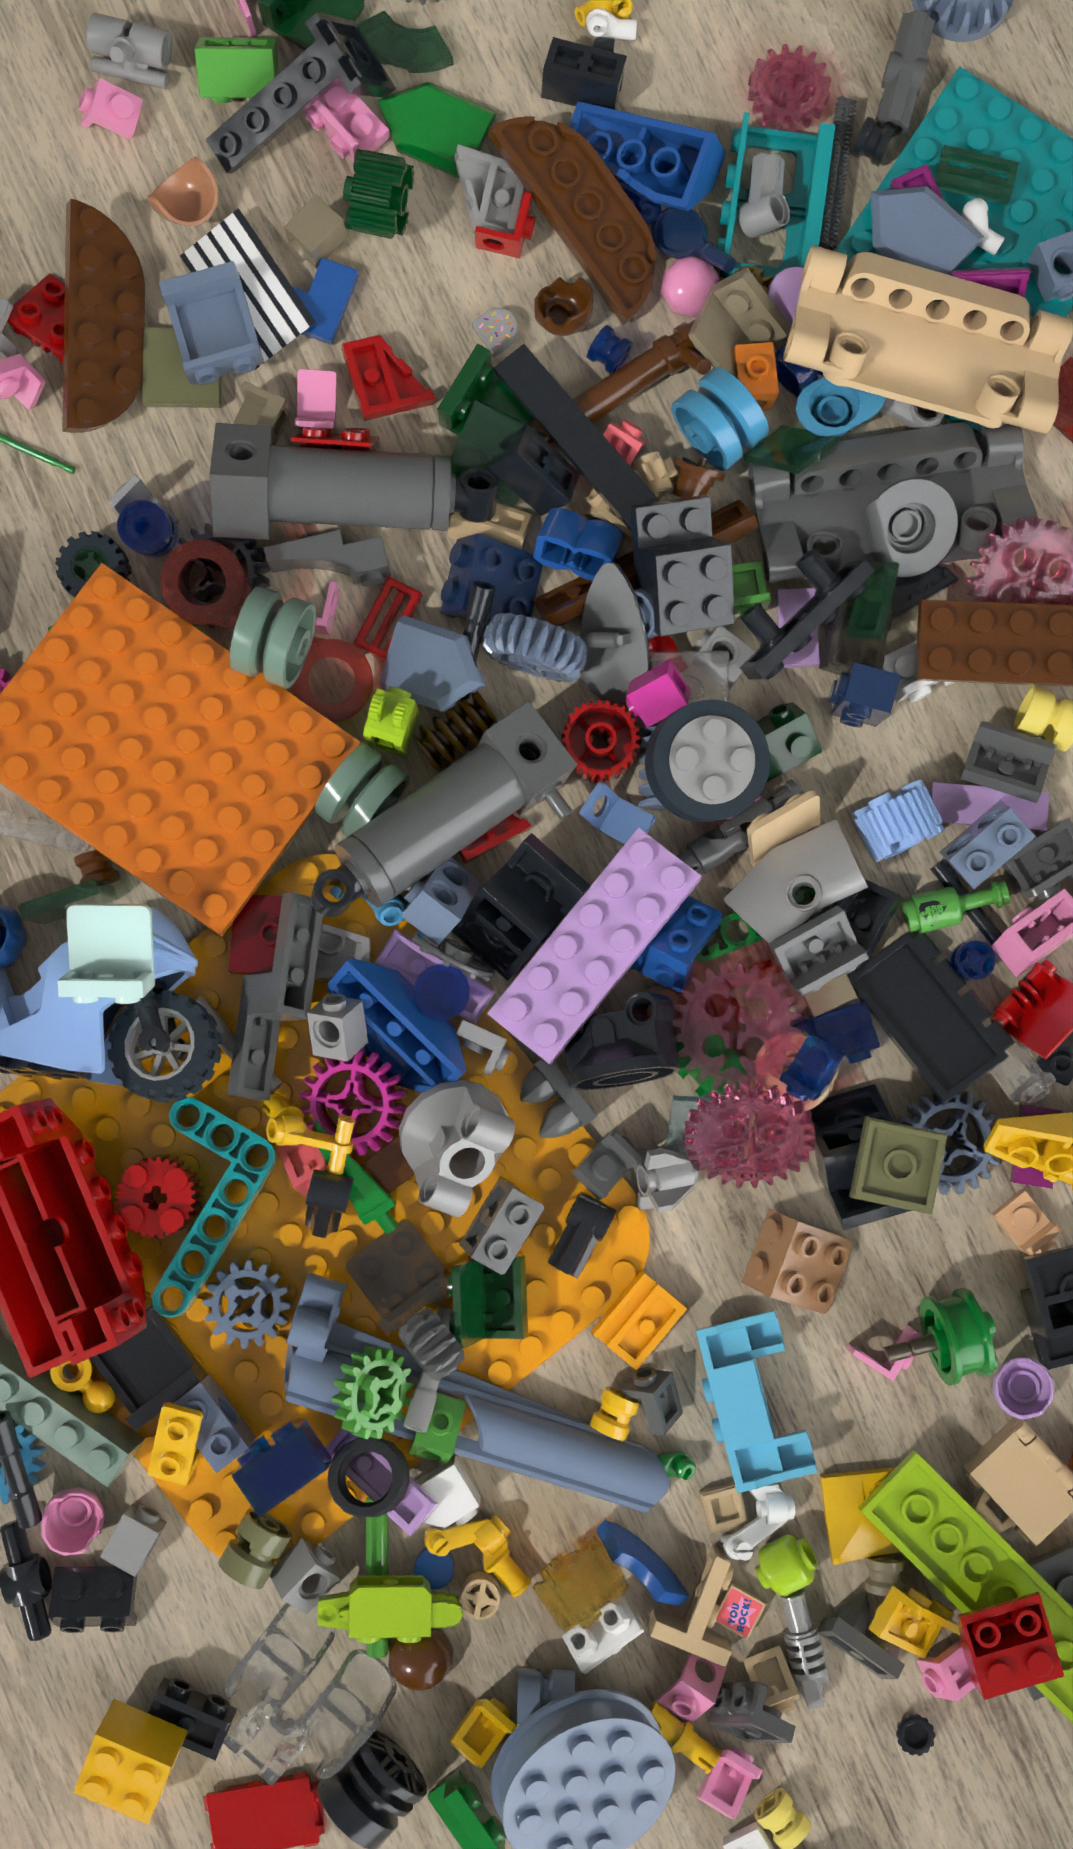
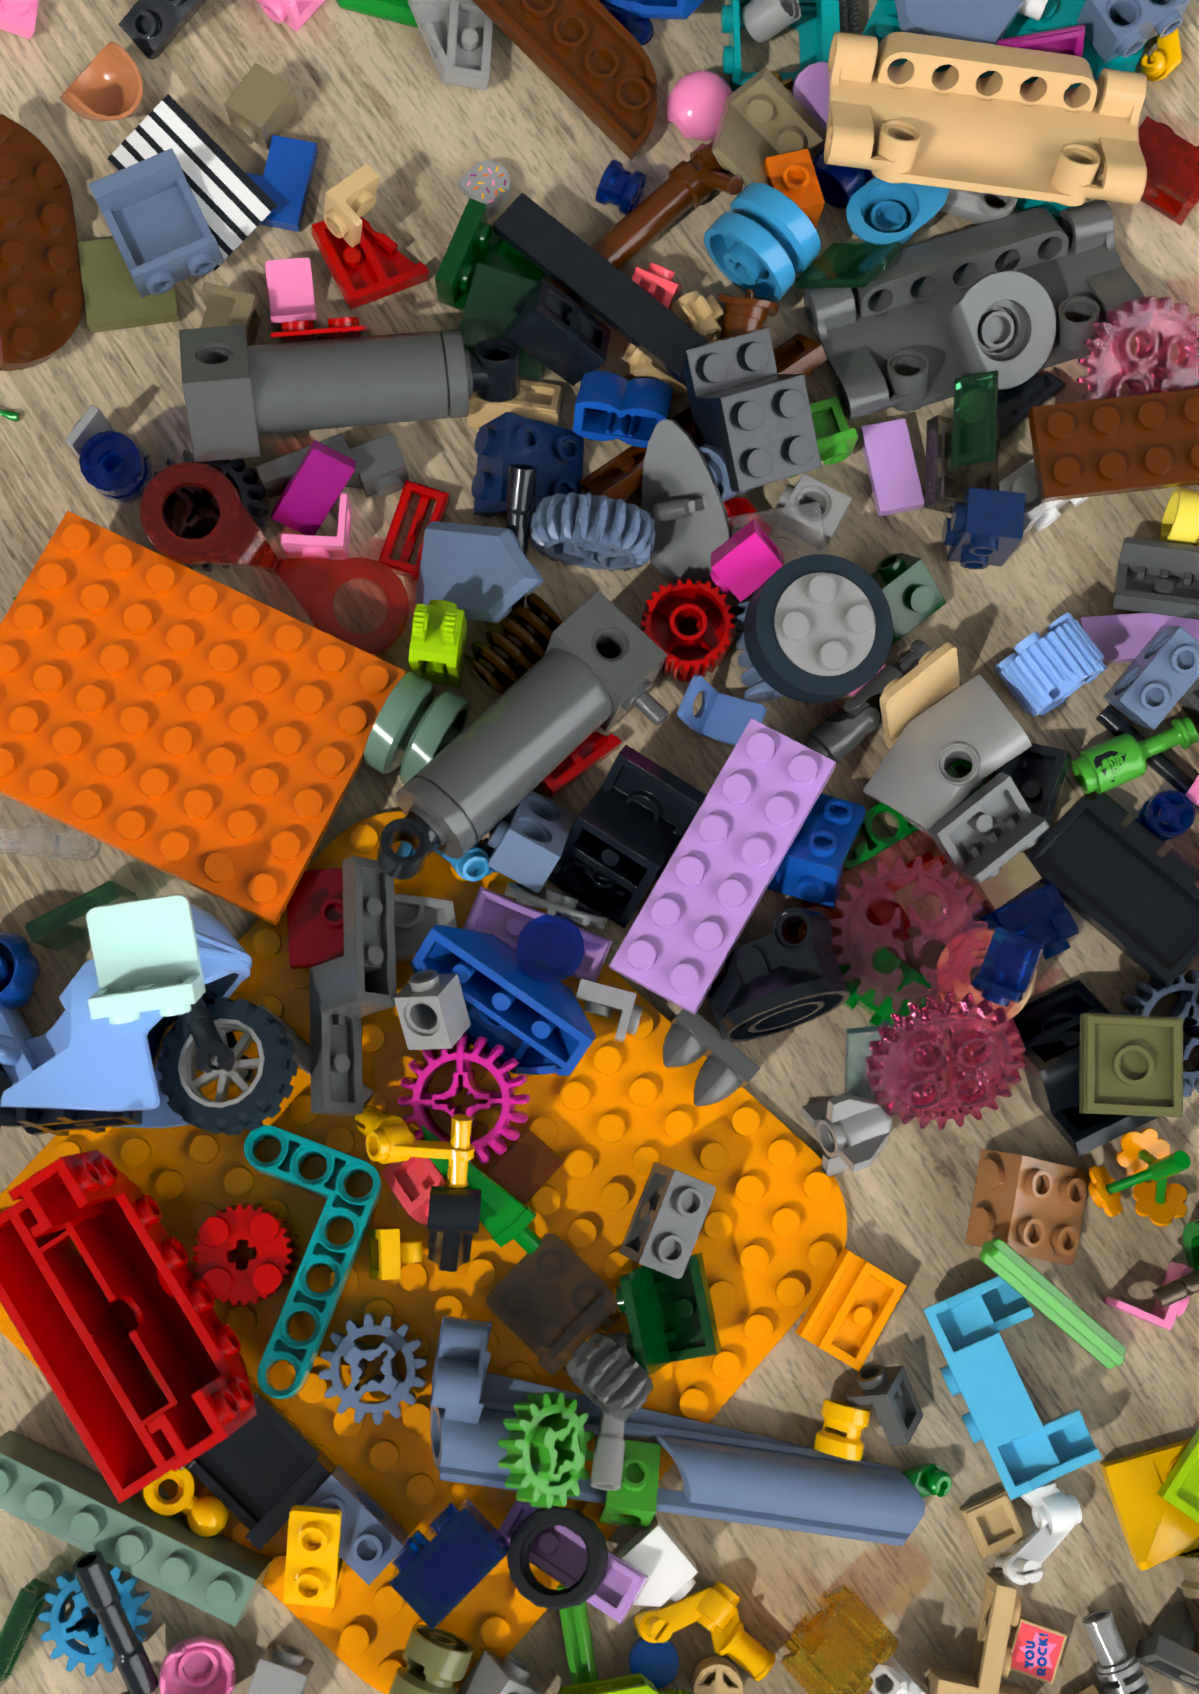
camera: 15 degrees left, 5 degrees down
(85, 555) = (44, 511): black wheel -> none
(96, 867) = (112, 866): reddish brown wheel -> none
(272, 637) = (284, 561): sand green wheel -> none
(274, 1213) = (388, 1253): none -> yellow tile
(310, 571) = (313, 489): none -> magenta tile
(377, 326) = (349, 202): none -> tan bracket
(378, 194) = (327, 52): dark green brick -> none
(440, 1125) = (576, 1107): light grey piece -> none
(512, 243) = (489, 85): red bracket -> none
(564, 306) = (561, 147): reddish brown hair -> none
(585, 1226) = (768, 1204): black piece -> none
(606, 1164) = (780, 1125): dark grey bracket -> none
(642, 1562) = (908, 1609): blue tile -> none
(684, 235) = (685, 47): dark blue piece -> none
(786, 1564) = (1083, 1581): lime head -> none
(801, 1342) = (1052, 1302): none -> bright green axle
(819, 610) = (916, 439): black plate -> none
(901, 1249) = (1144, 1159): none -> light orange plant

